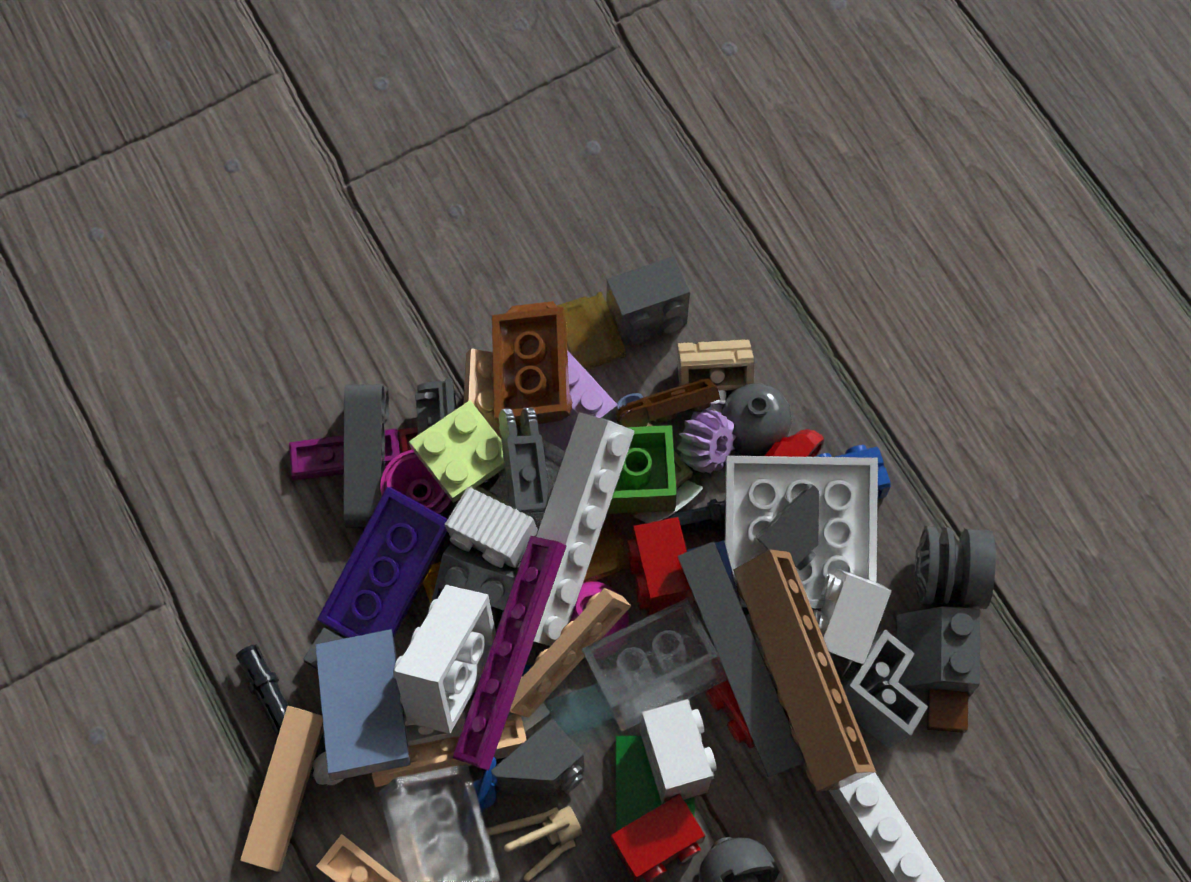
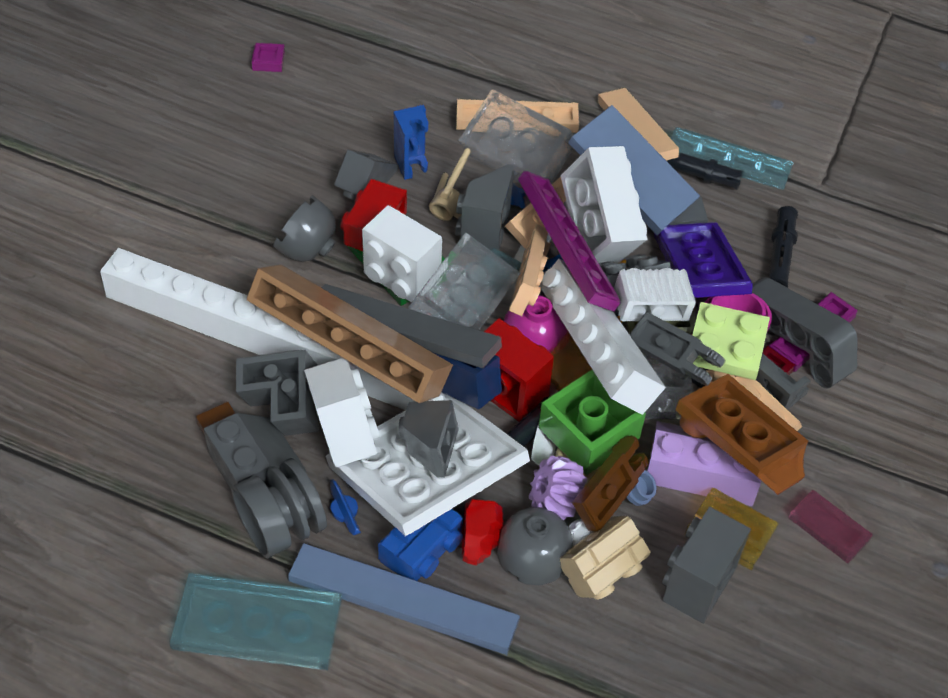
camera: 140 degrees right, 15 degrees down
(224, 693) = (755, 164): none -> clear light blue tile
(277, 555) = (785, 223): none -> black pin
(506, 282) = (830, 526): none -> clear pink tile
(888, 553) = (344, 508): none -> blue piece
(900, 458) = (405, 598): none -> sand blue tile
(1019, 504) = (257, 621): none -> clear light blue tile

